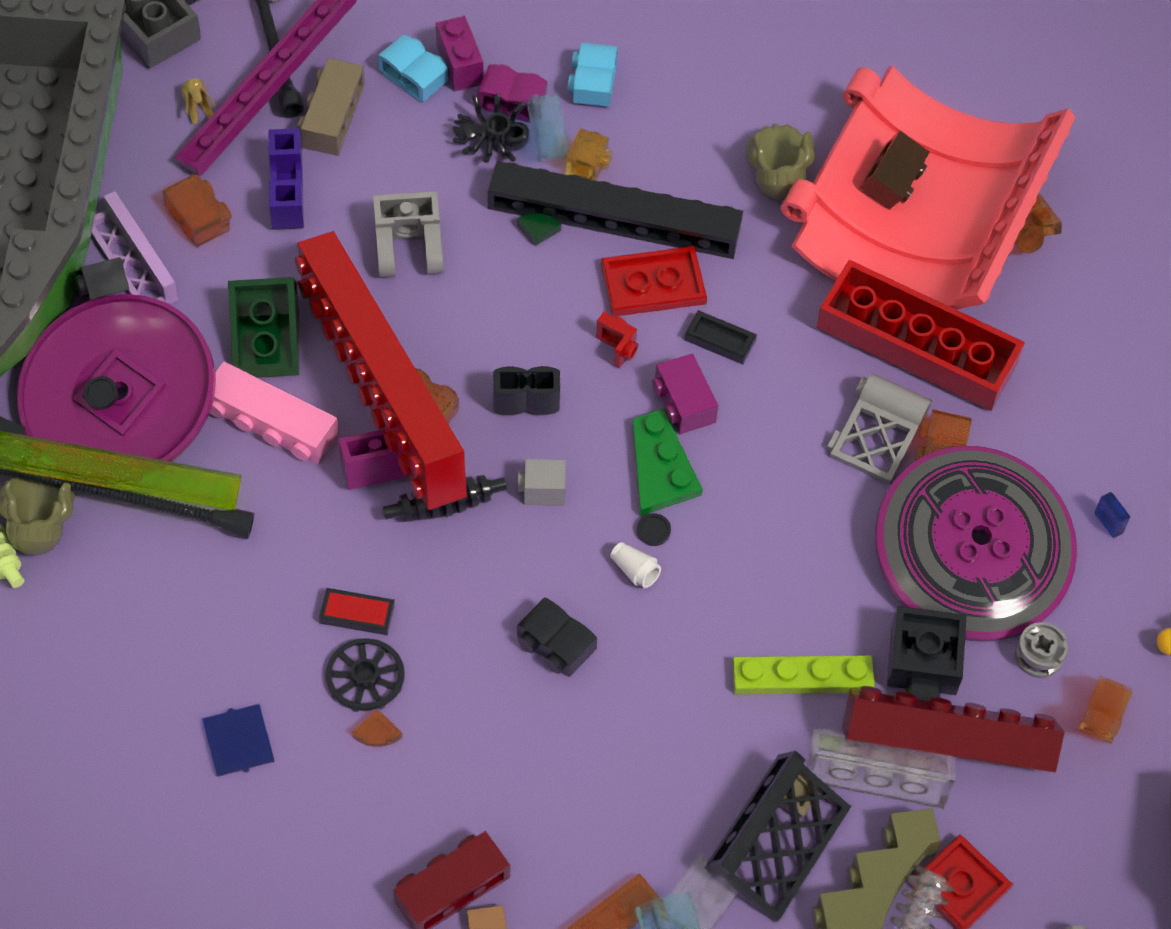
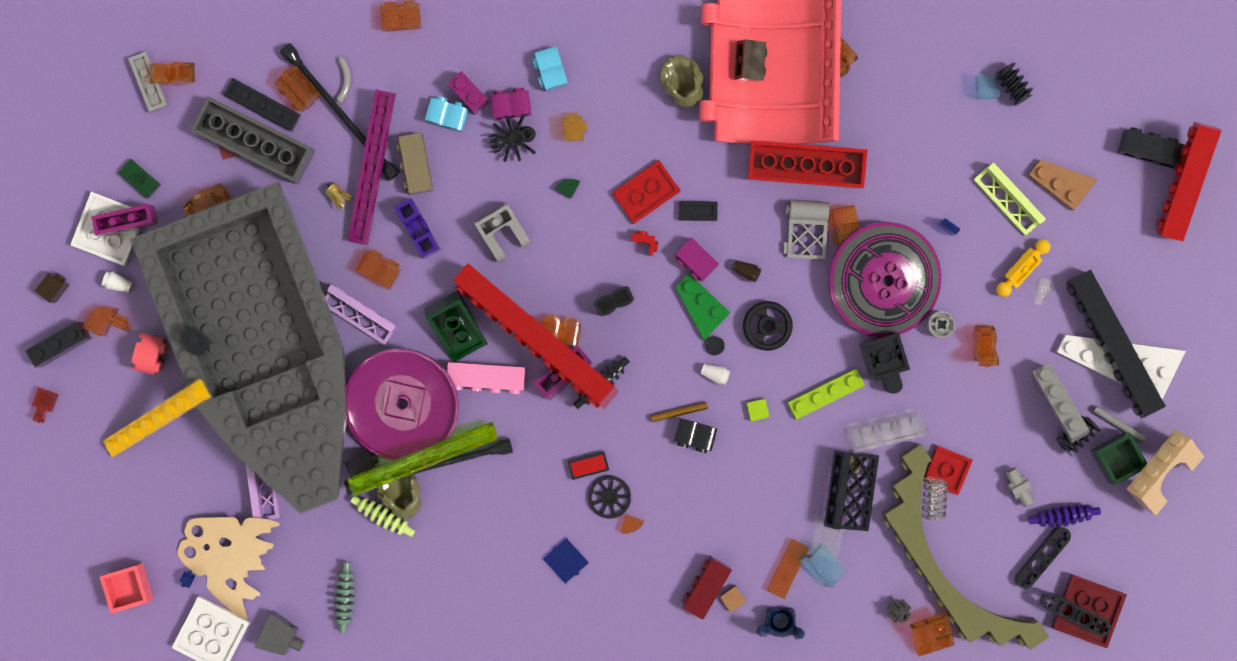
camera: 20 degrees left, 30 degrees up
(101, 279) = (360, 350): black brick -> none
(101, 392) = (396, 413): black piece -> none
(537, 595) = (678, 412): none -> pearl gold bar
(543, 482) = (647, 349): light grey brick -> none
(548, 127) = (543, 122): clear light blue panel -> none
(615, 209) = (606, 157): black brick -> none
(677, 649) = (758, 410): none -> lime tile
(753, 517) = (758, 339): none -> black wheel
(758, 443) = (747, 270): none -> dark brown cone
(953, 729) = (915, 398): dark red brick -> none

